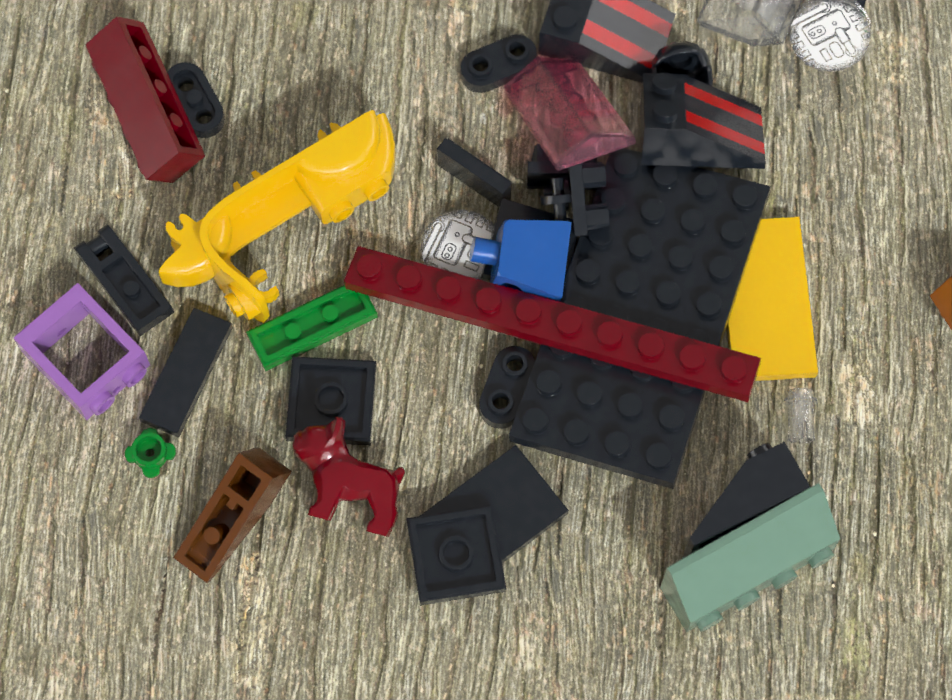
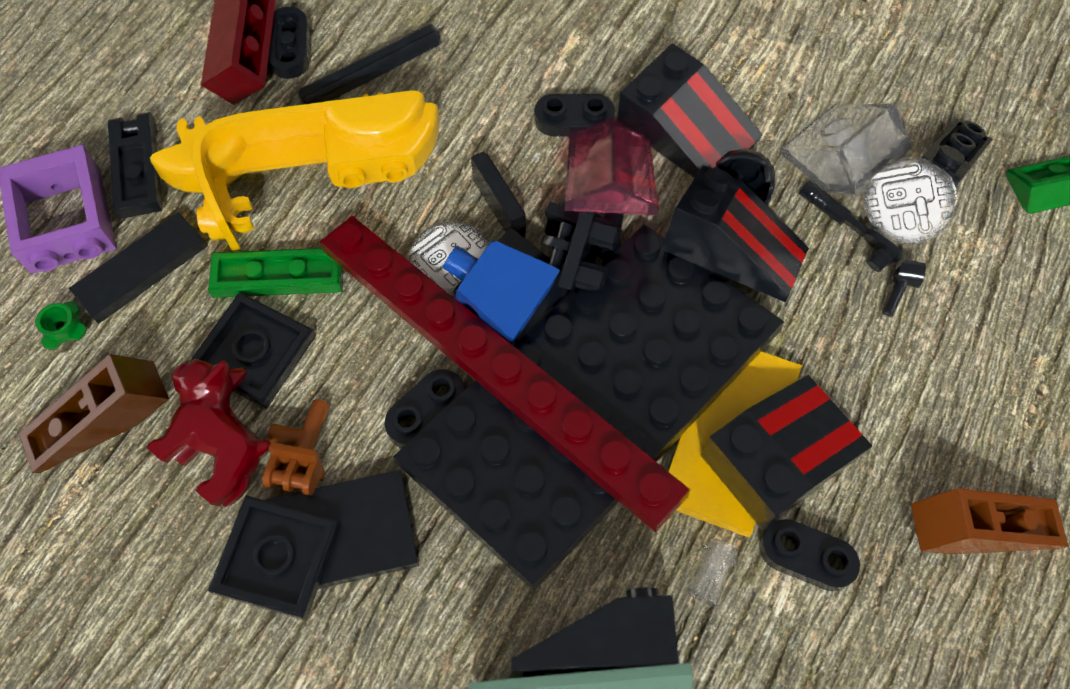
camera: 25 degrees right, 5 degrees down
(284, 93) = (371, 66): none -> black axle
(426, 475) = (292, 454): none -> dark orange arm
(815, 294) = (783, 450): none -> black slope
(826, 85) = (884, 250): none -> black piece
(852, 98) = (908, 274): none -> black hand
(870, 370) = (810, 556): none -> black plate

